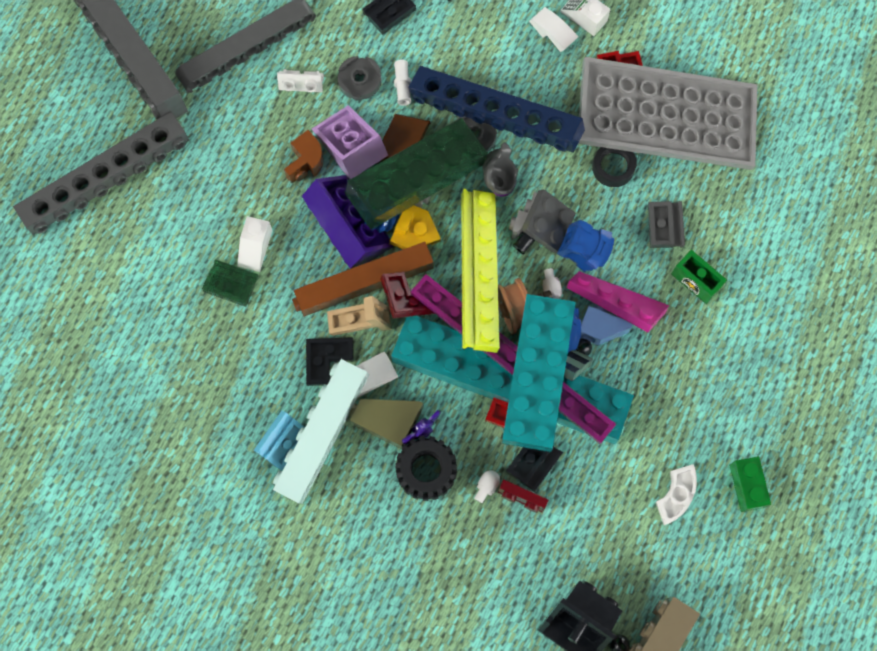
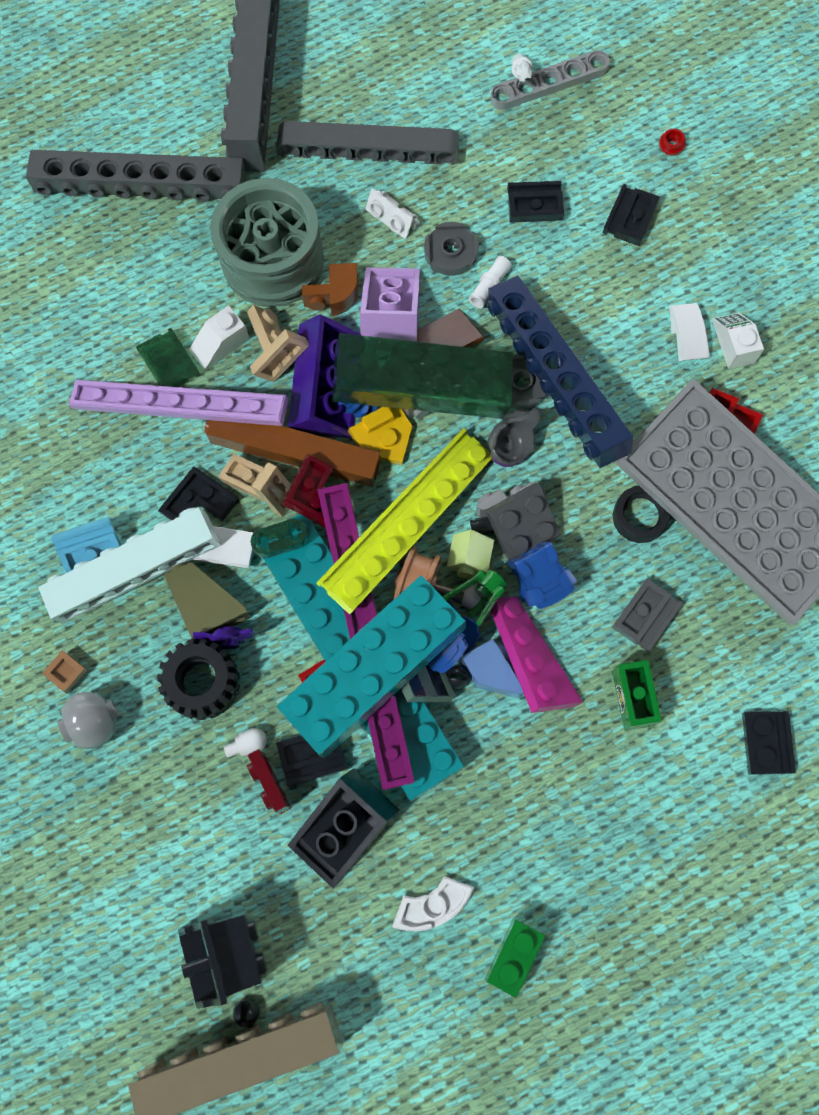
camera: 40 degrees right, 0 degrees up
(245, 131) = (263, 225): none -> sand green wheel
(263, 304) = (179, 402): none -> lavender tile
(303, 221) = (279, 347): none -> tan bracket
(332, 531) = (64, 672): none -> medium nougat plate
(377, 547) = (88, 720): none -> light grey plant
(405, 336) = (277, 531): none -> clear green beam
(532, 264) = (470, 553): none -> yellowish green brick
(561, 275) = (489, 588): none -> green plant
(589, 489) = (343, 827): none -> black slope
(793, 249) = (768, 743): none -> black plate

